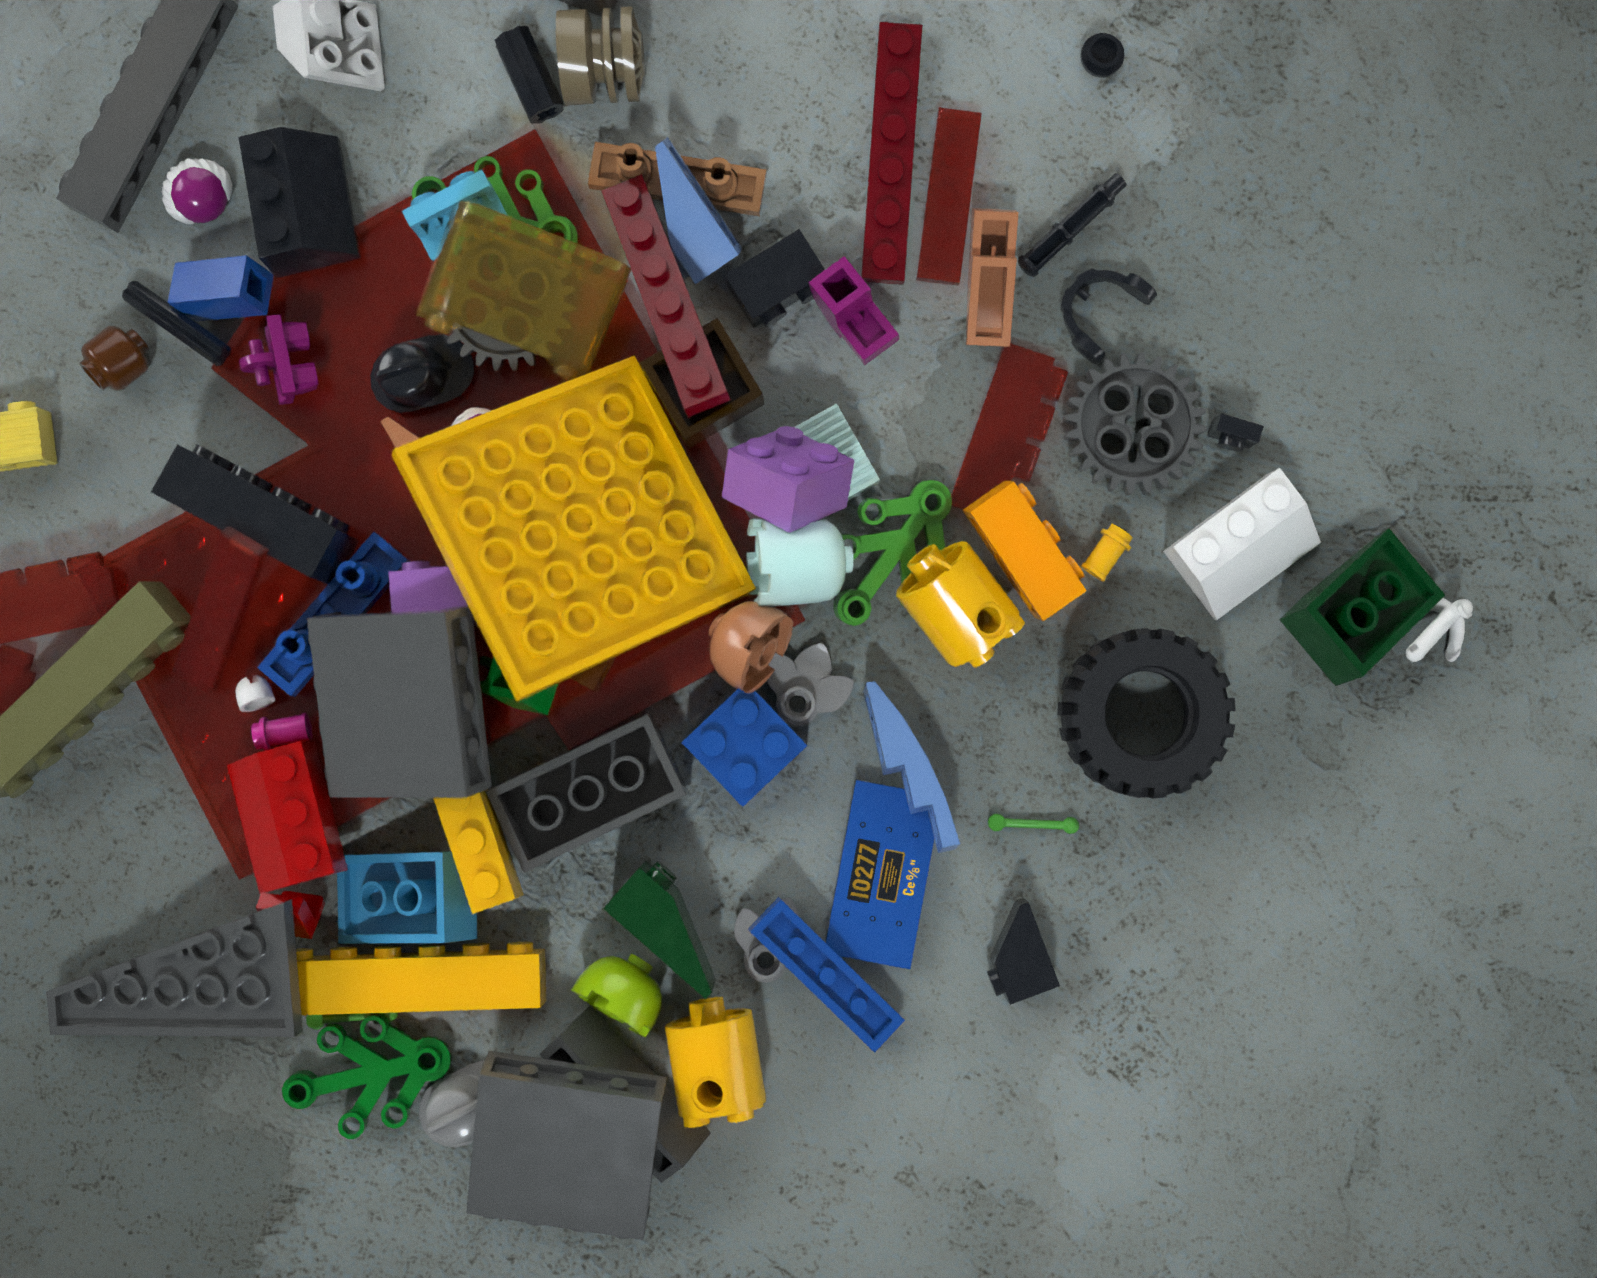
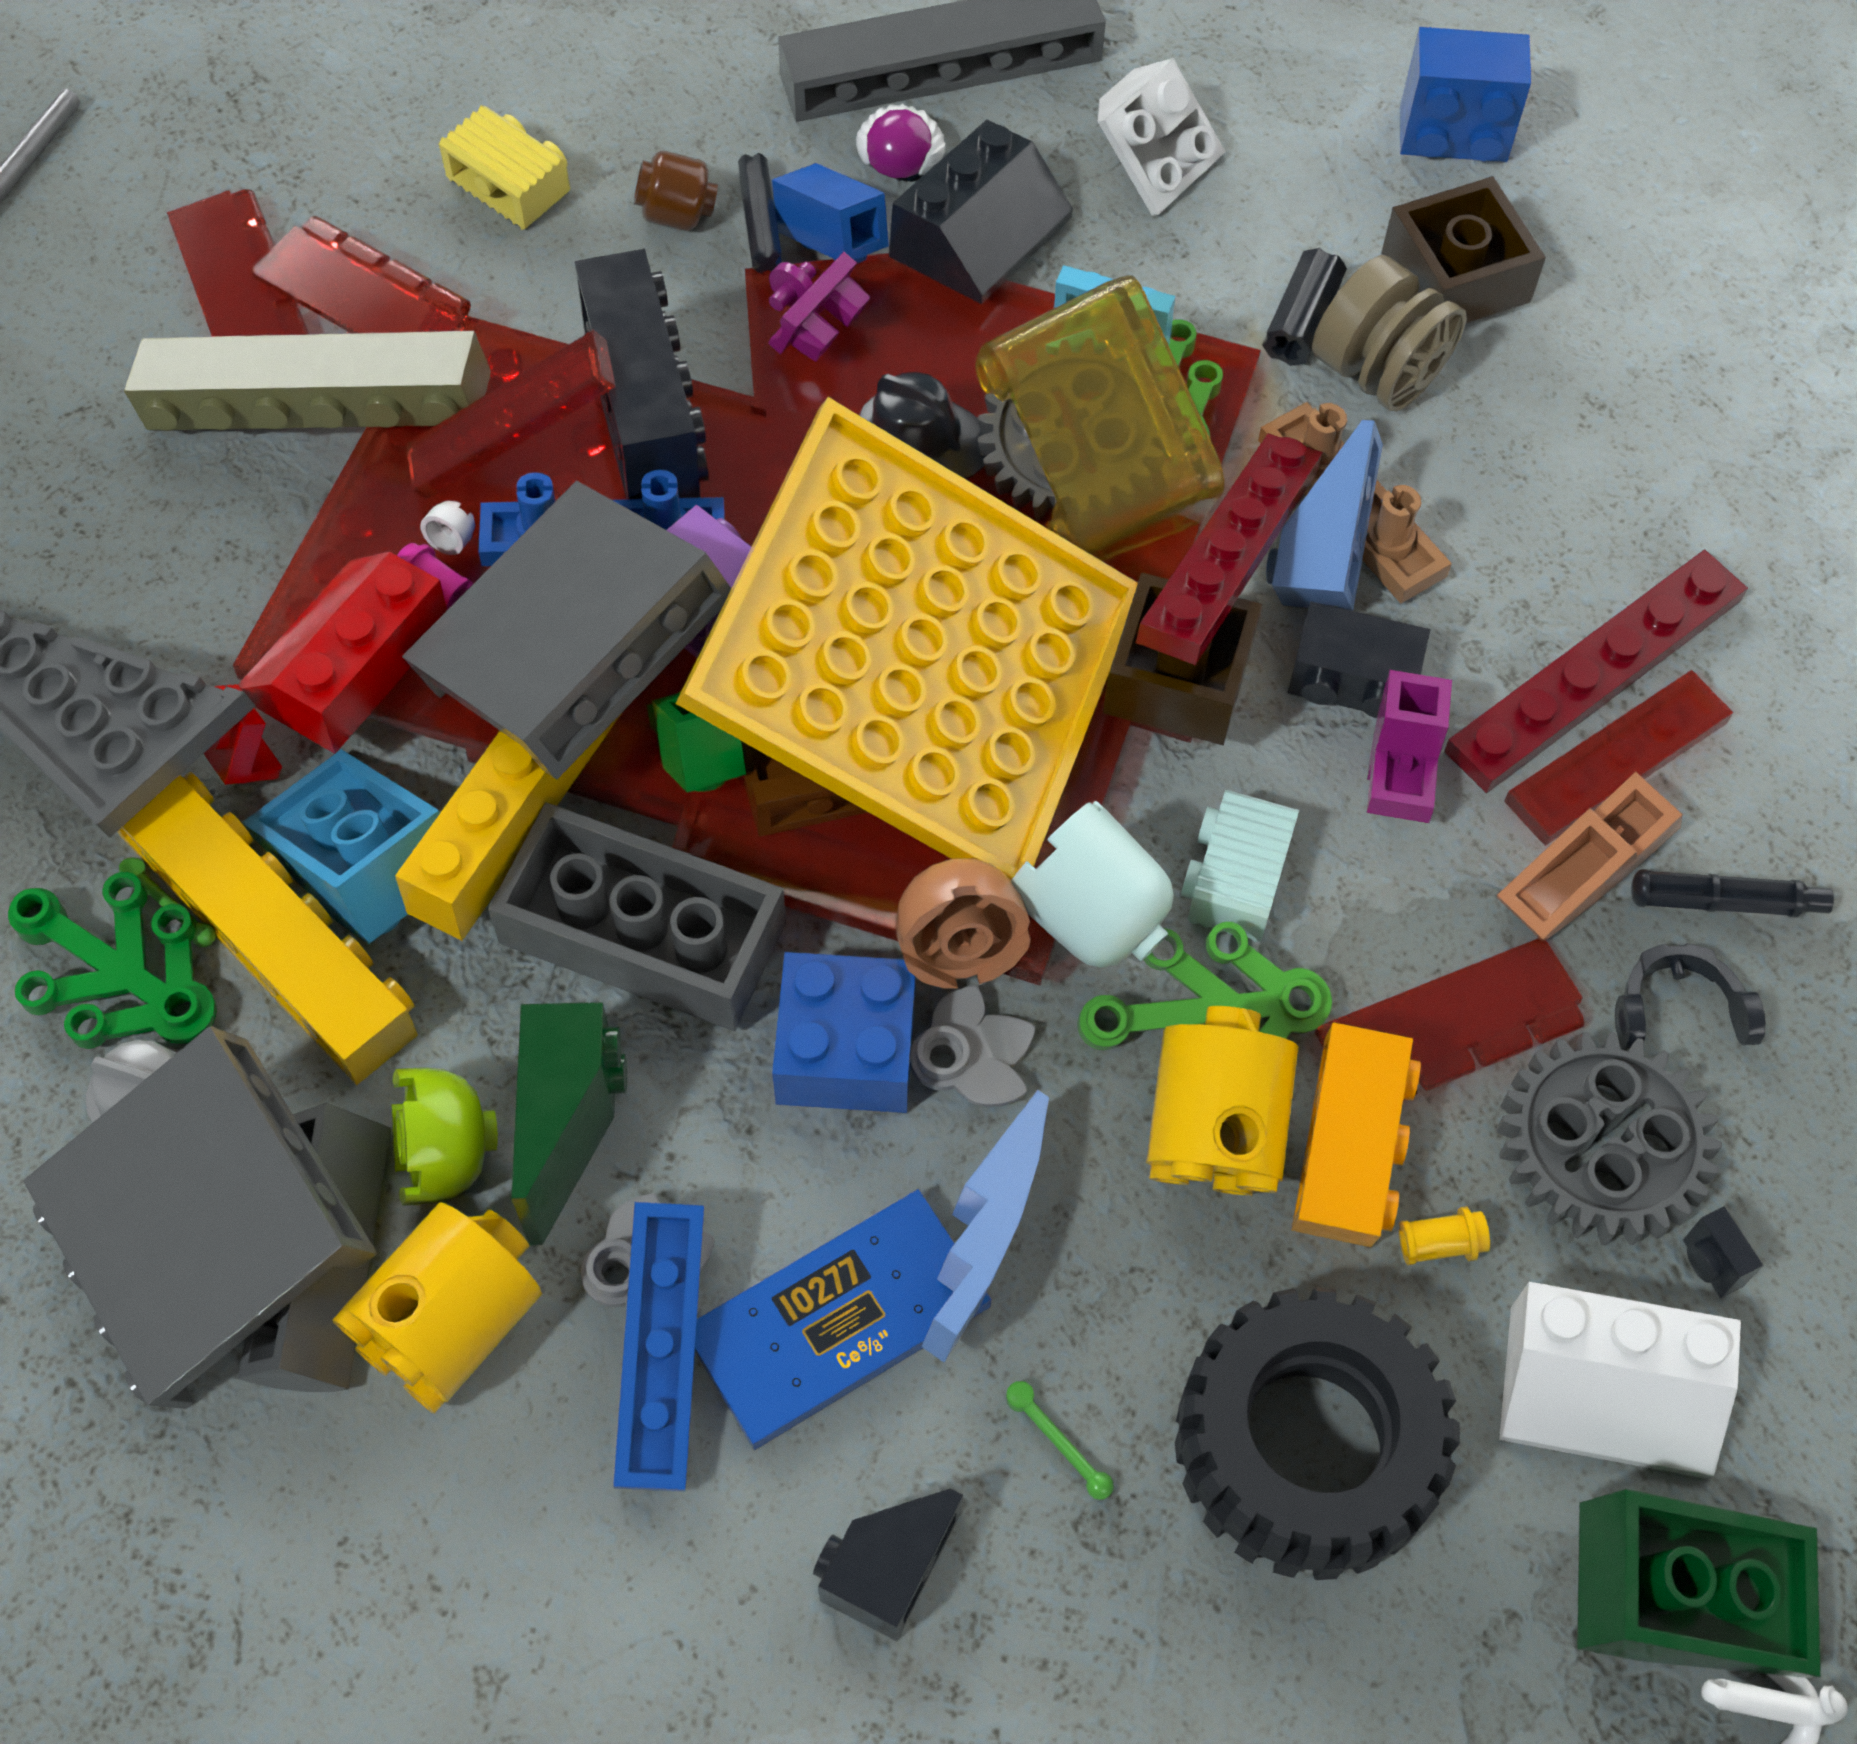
camera: 45 degrees right, 25 degrees down
(787, 478) = (1175, 805): medium lavender brick -> none

